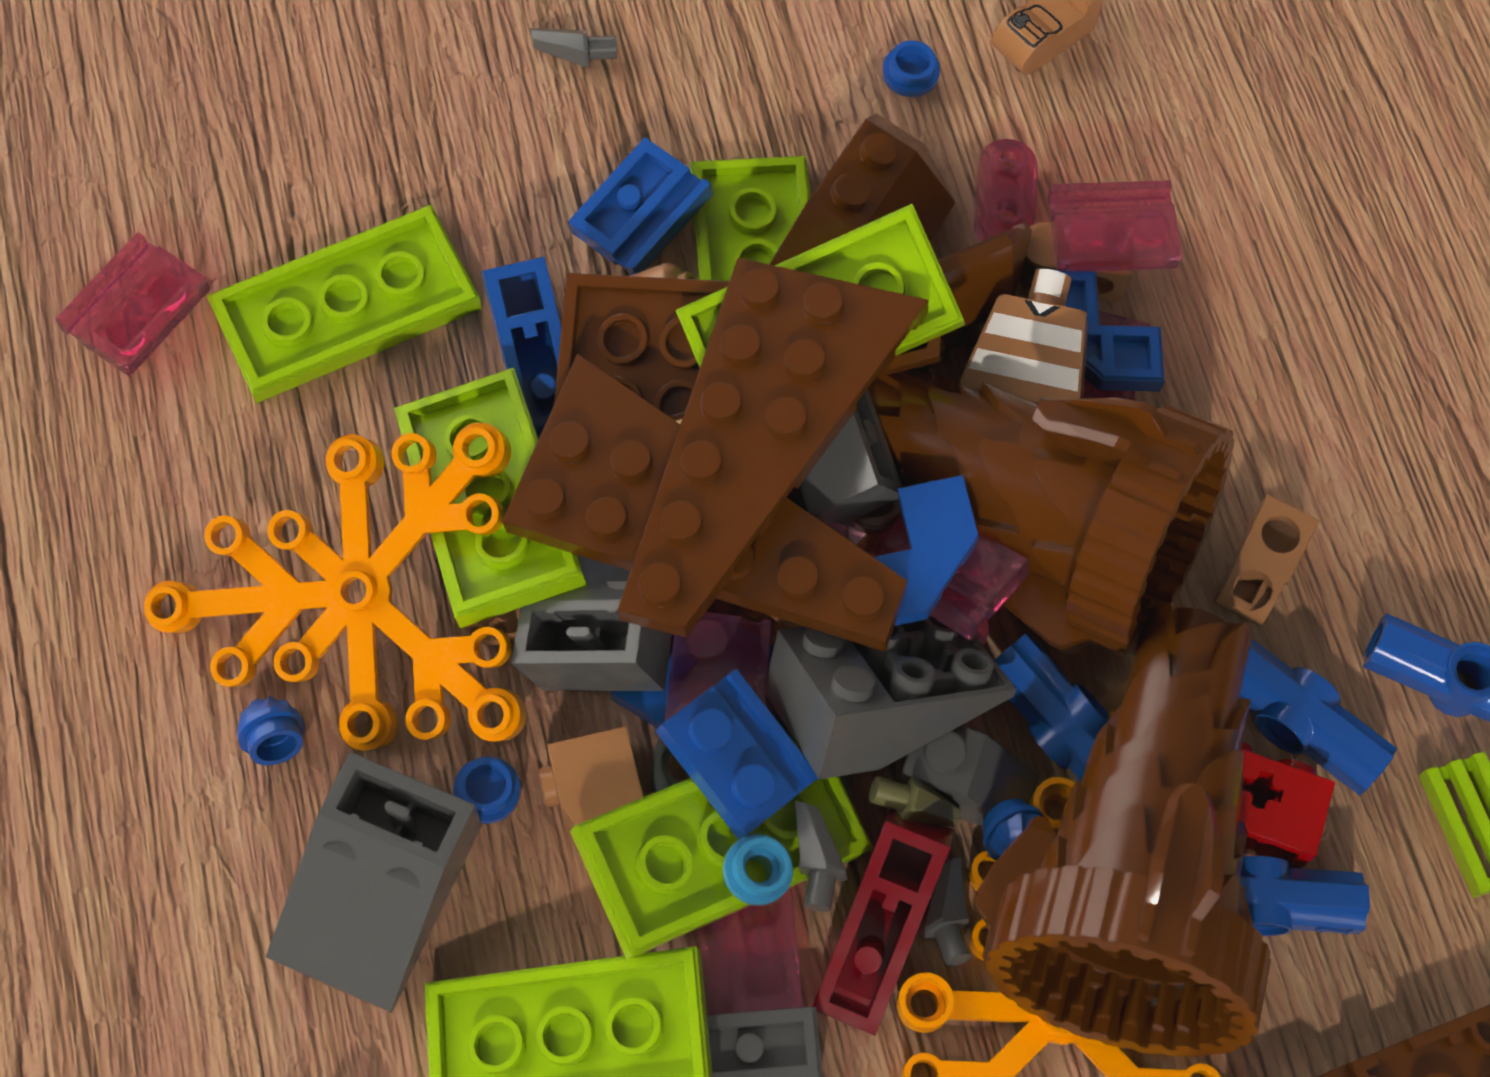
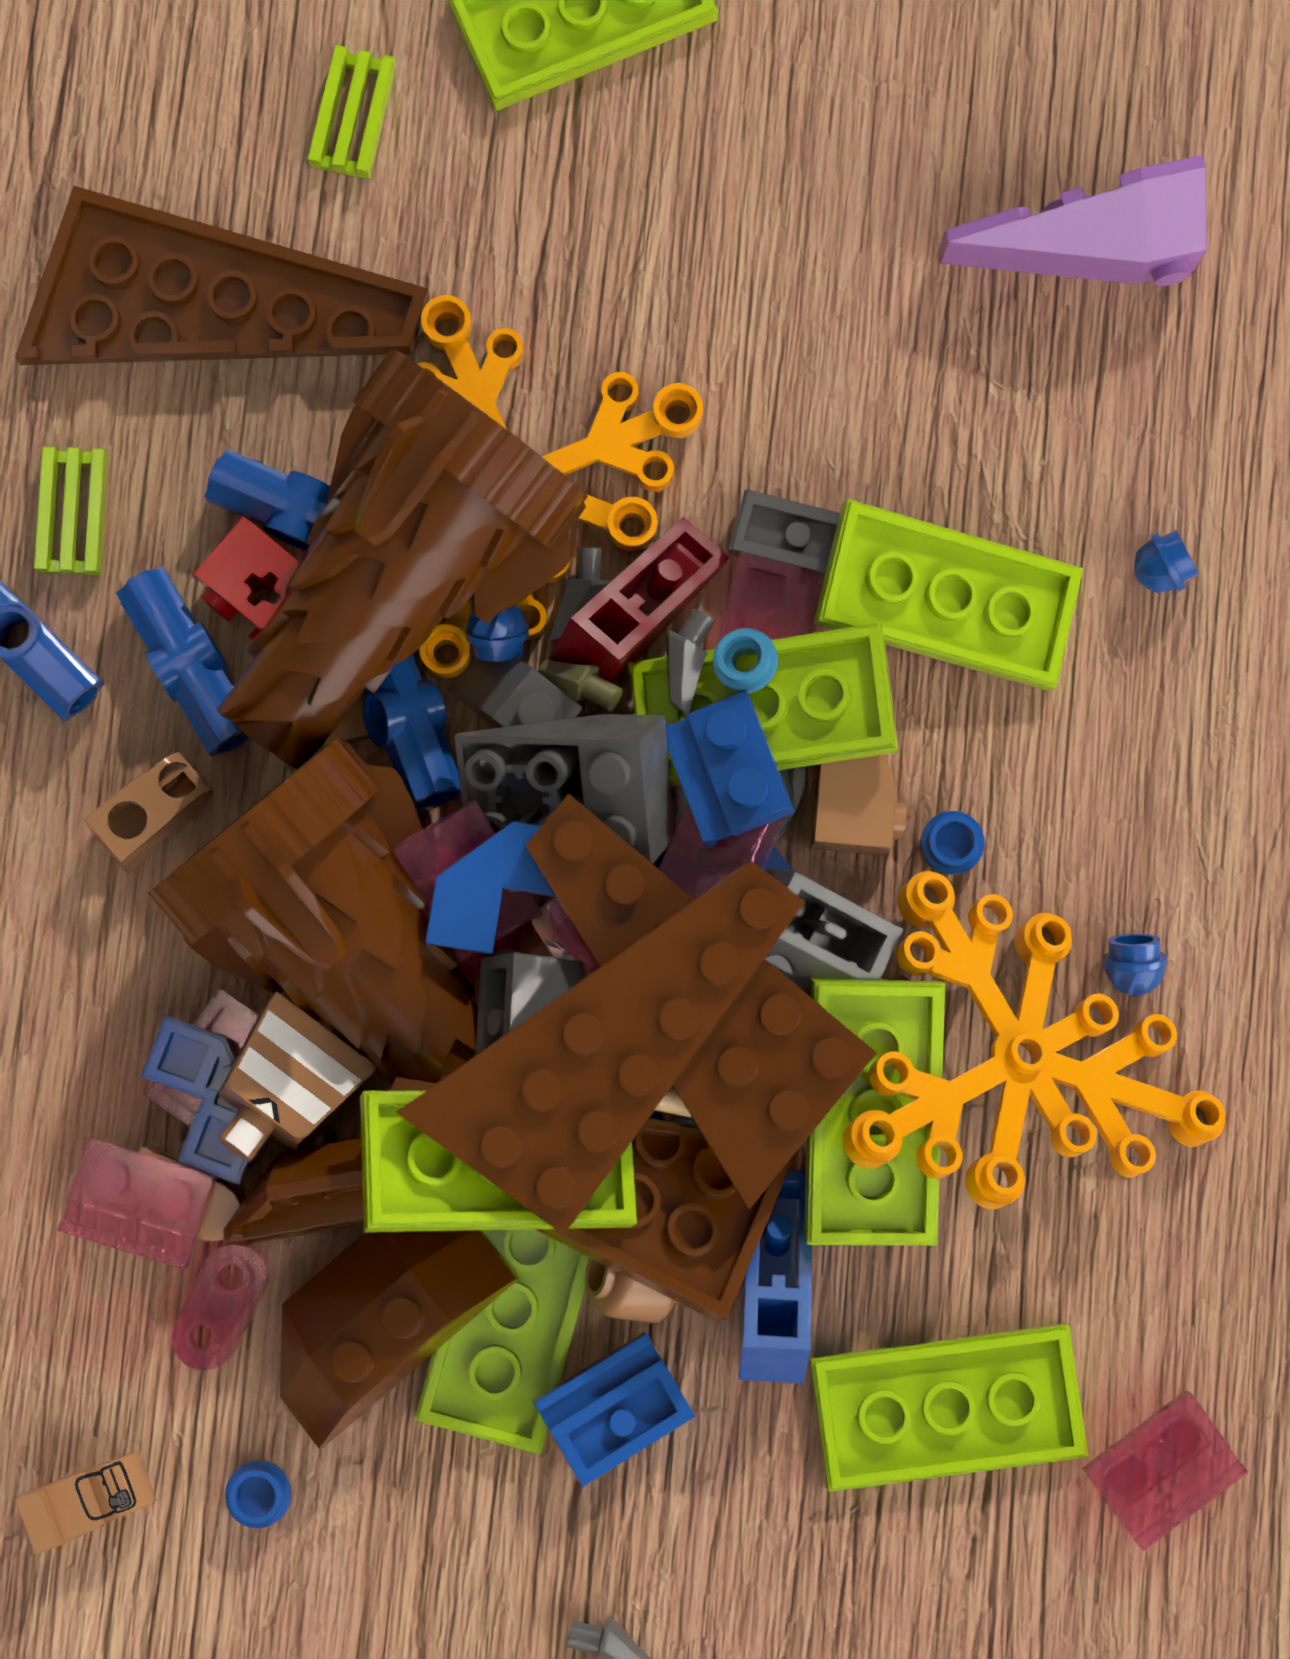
camera: 155 degrees left, 15 degrees up
(373, 881) = (1077, 786): dark grey slope -> none

